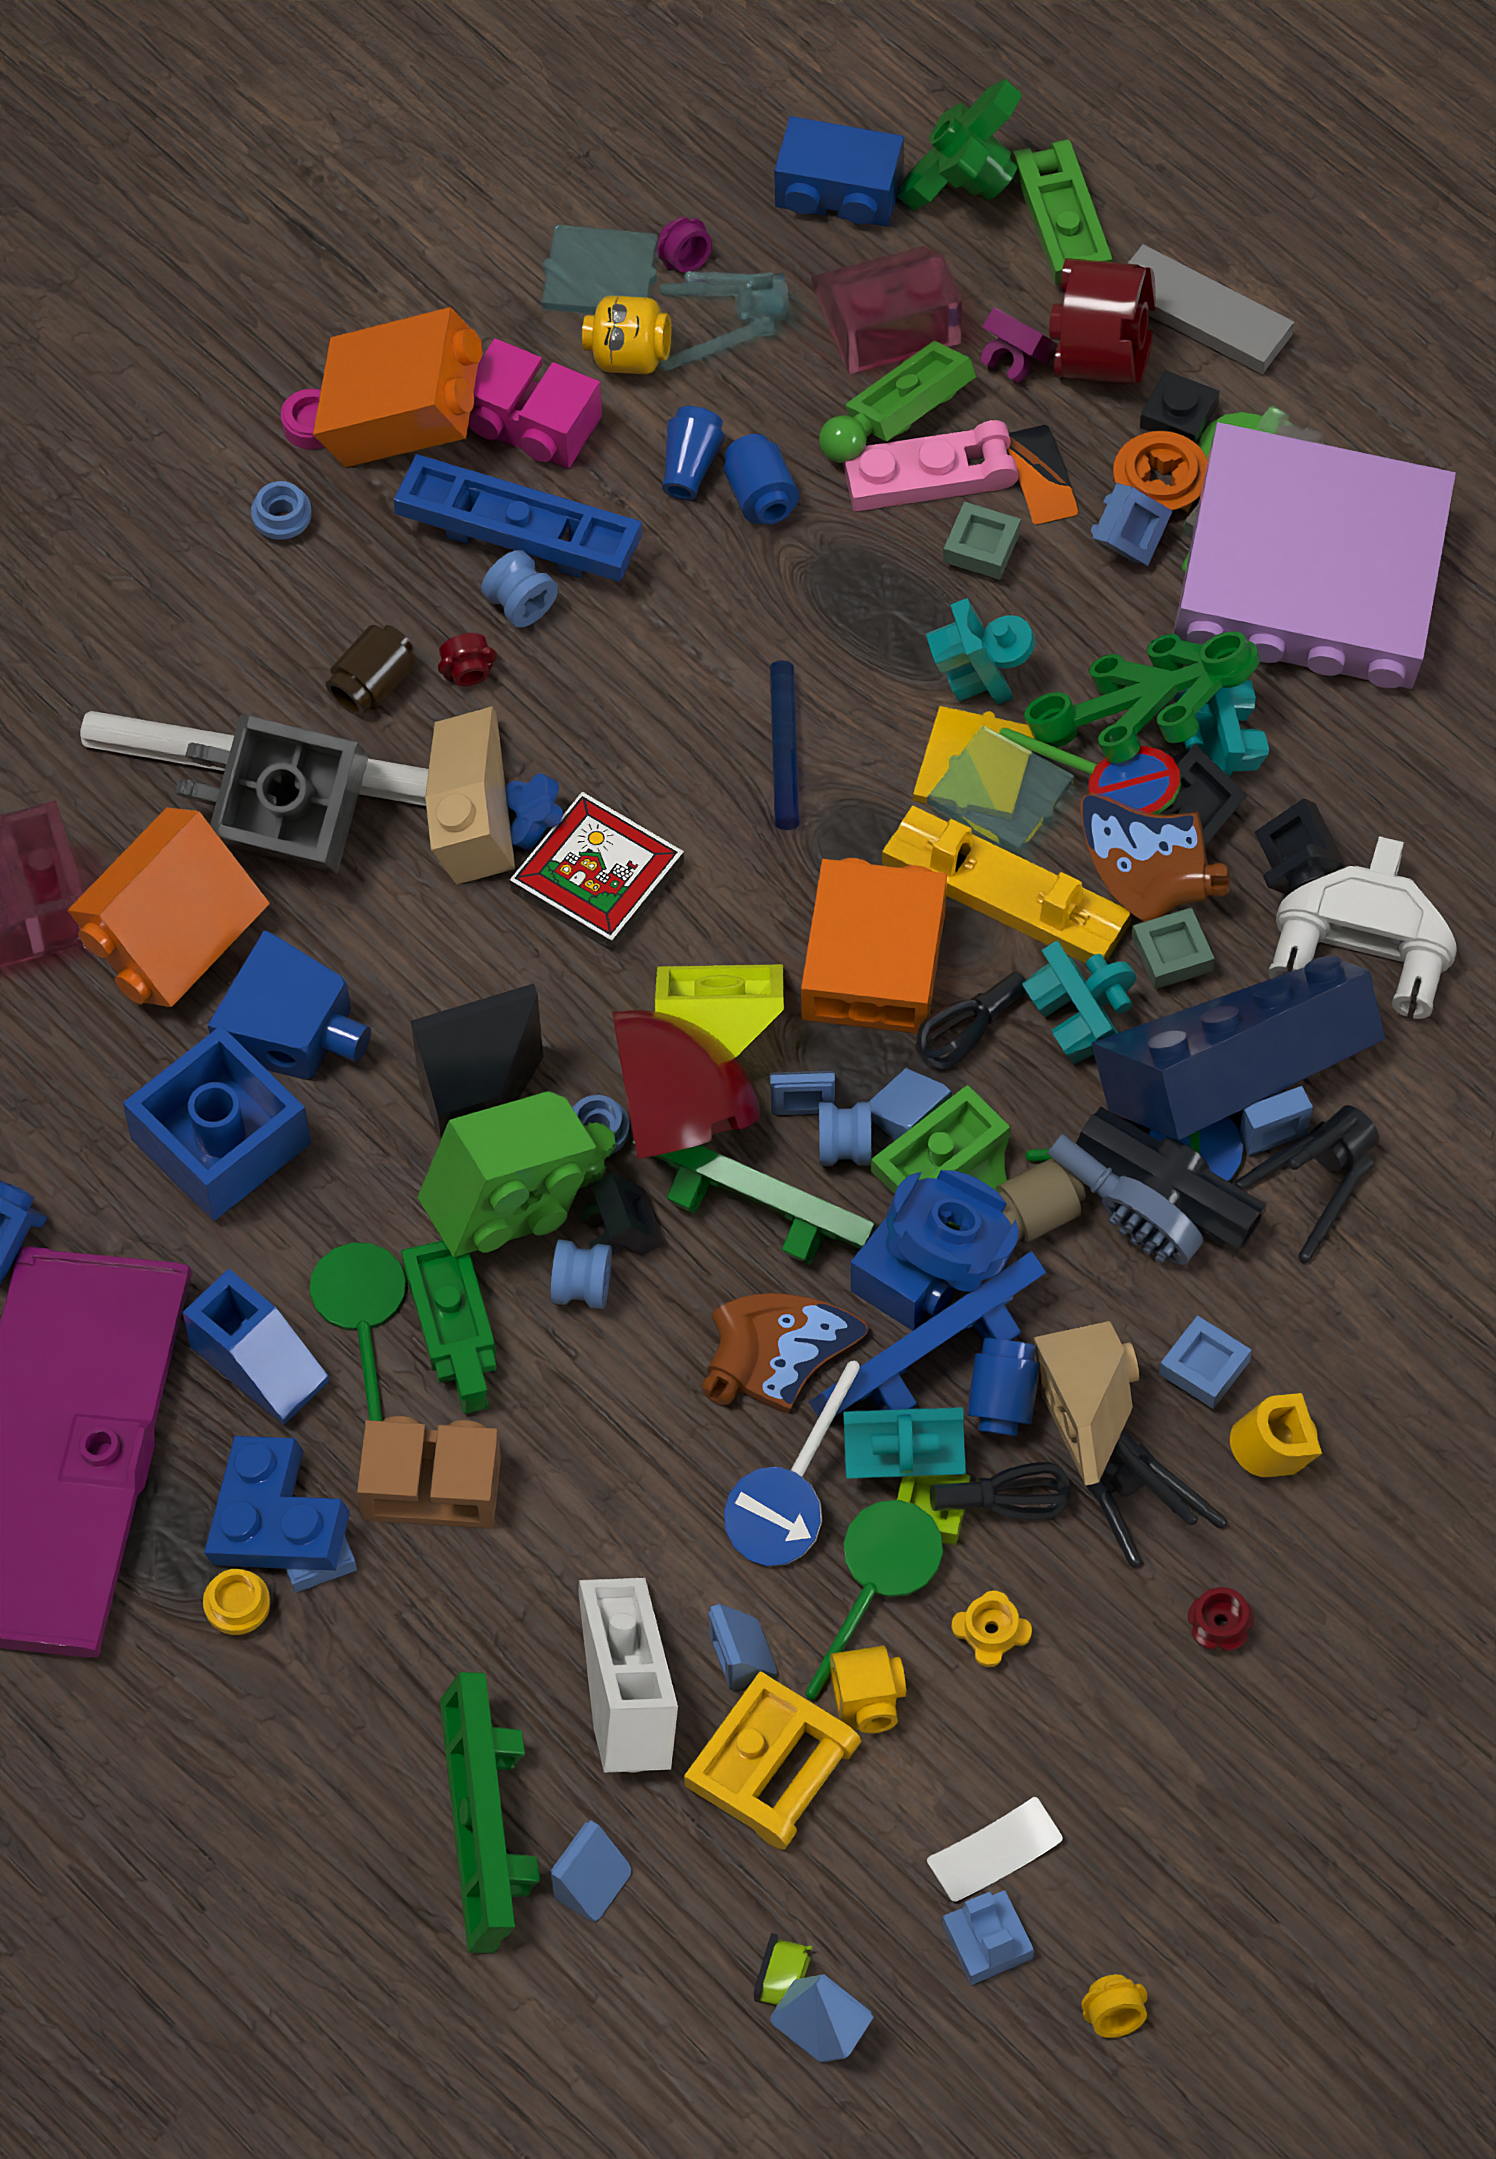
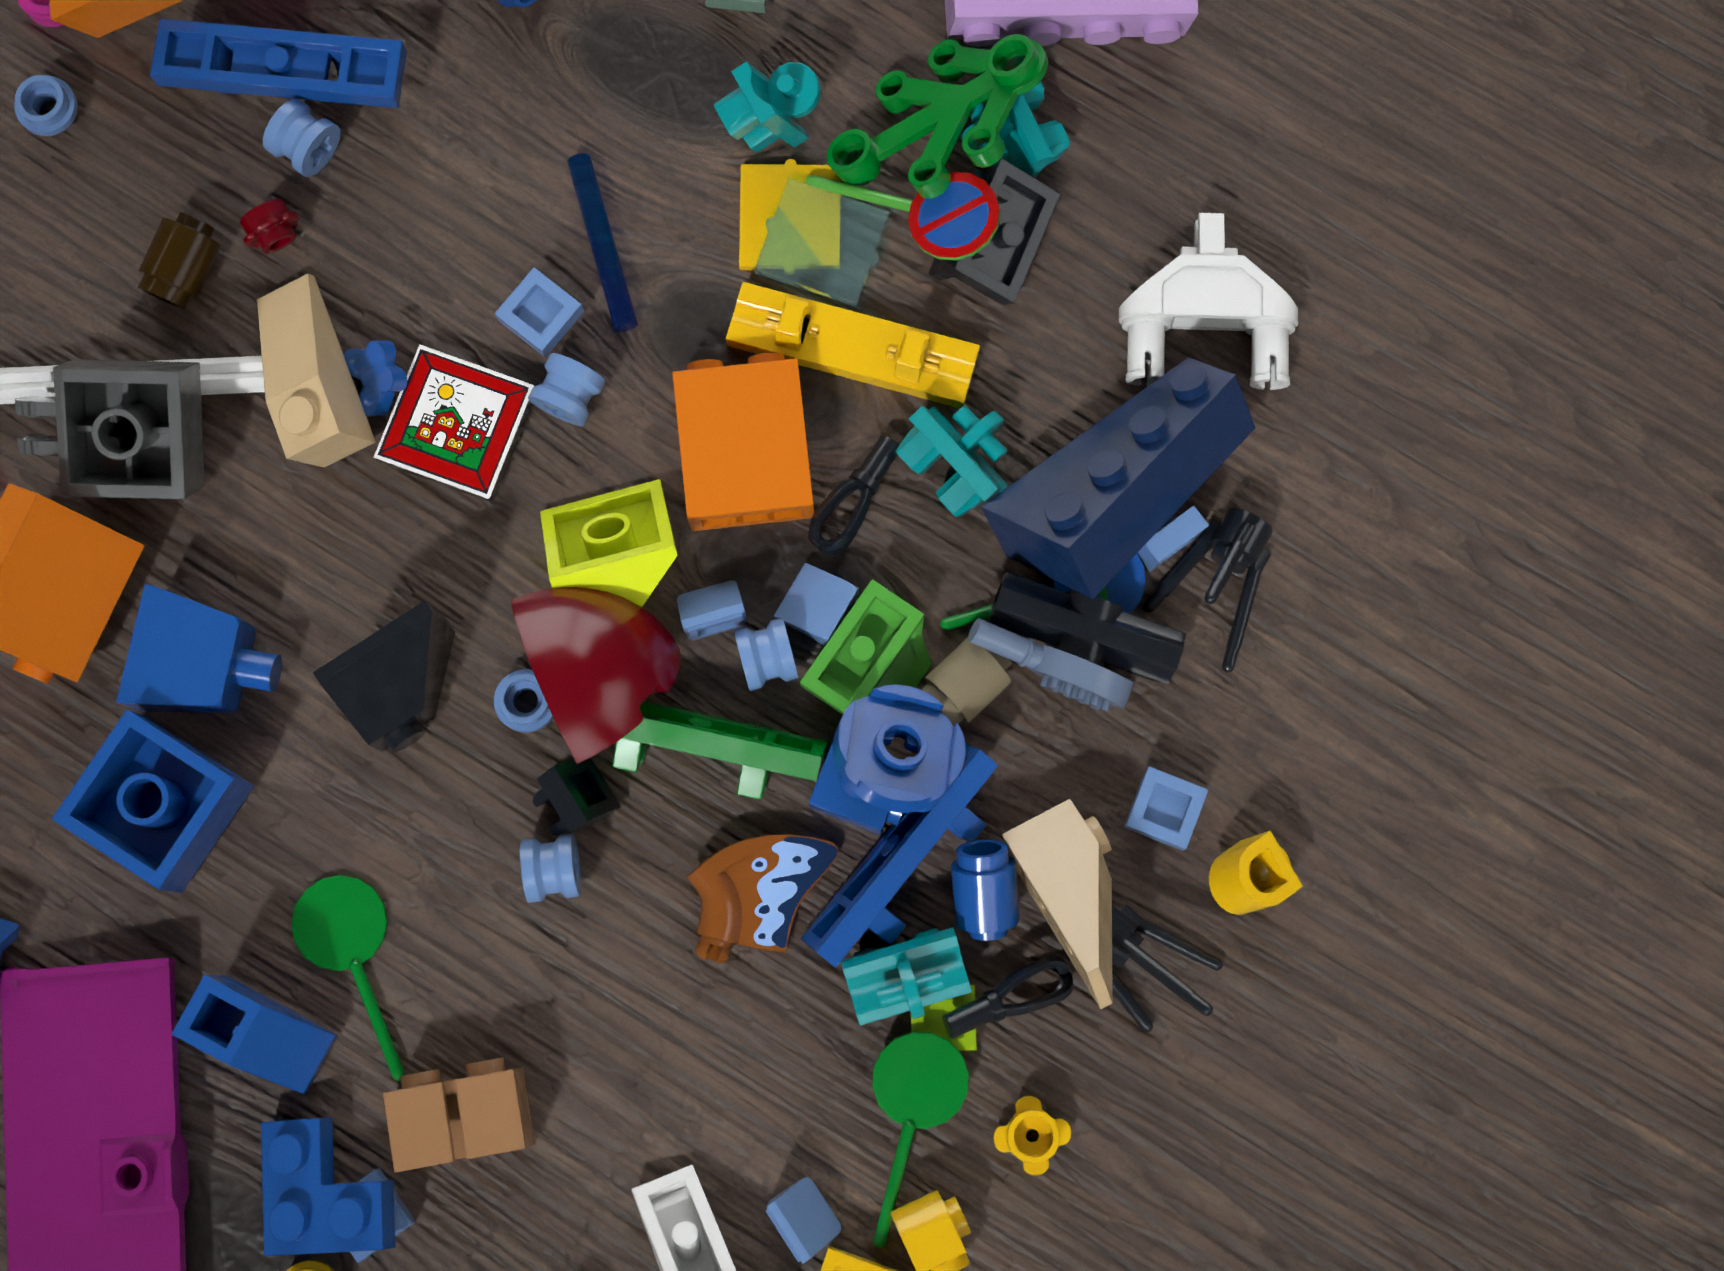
camera: 15 degrees left, 20 degrees up
(452, 1320) = (437, 942): green hinge -> none
(511, 1172) = (458, 794): bright green hinge -> none
(706, 789) = (539, 312): none -> medium blue plate
(714, 860) = (567, 389): none -> medium blue wheel
(775, 1511) = (798, 1069): blue piece -> none
(1150, 857) = (987, 291): dark orange arm -> none
(1173, 948) = (1029, 375): sand green plate -> none
(1223, 1603) = (1260, 1079): dark red plate -> none
(1298, 848) = (1124, 243): black bracket -> none

